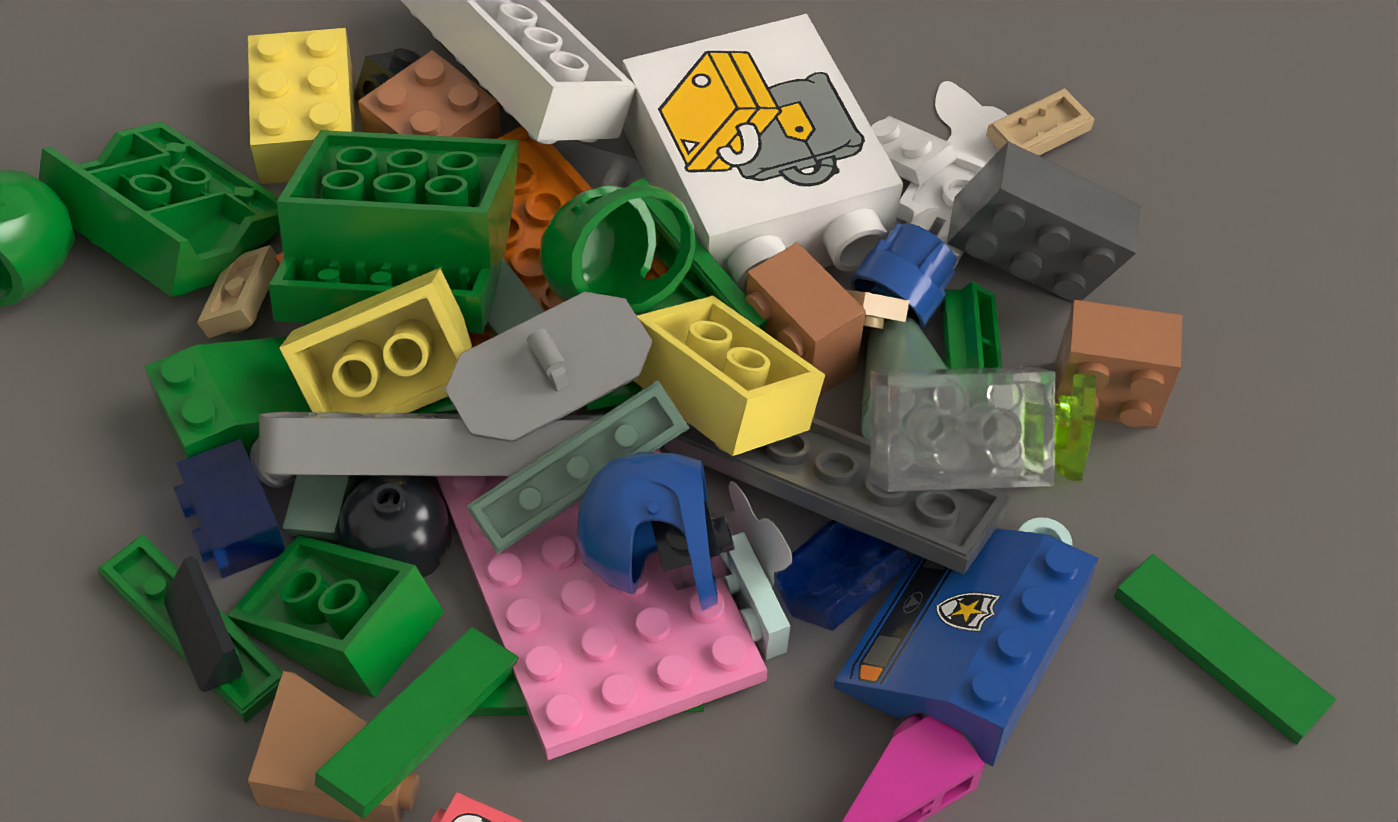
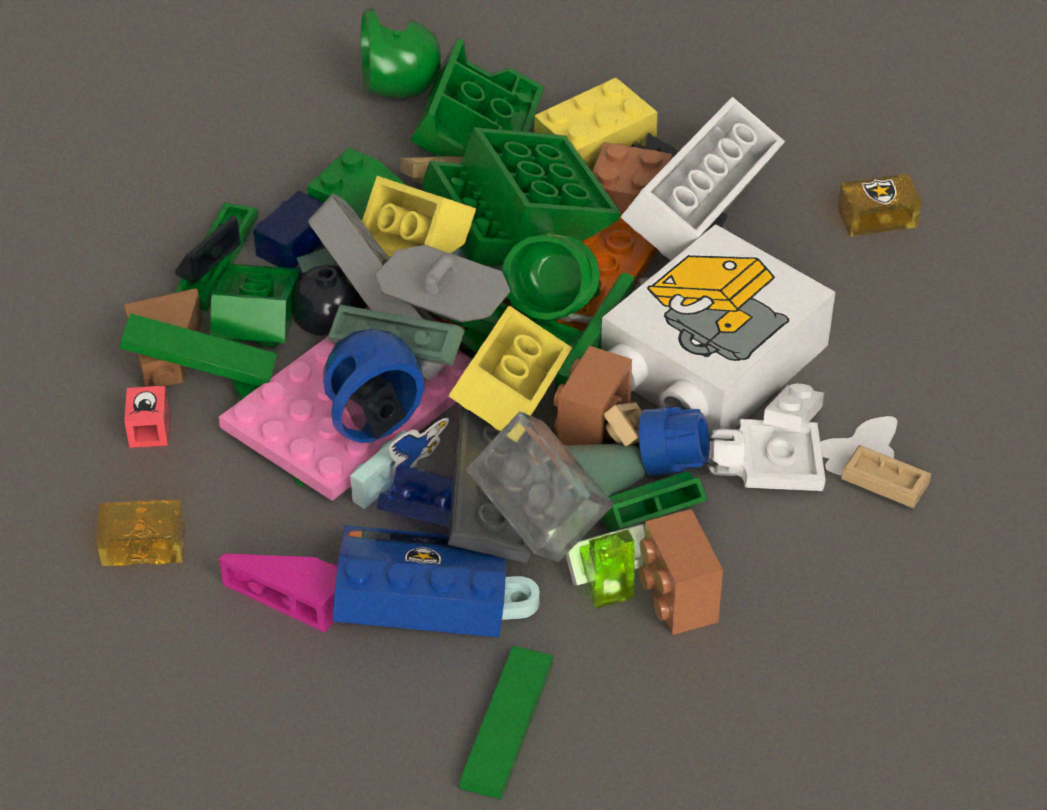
camera: 65 degrees right, 10 degrees down
(1044, 223) = (760, 483): dark grey brick -> none

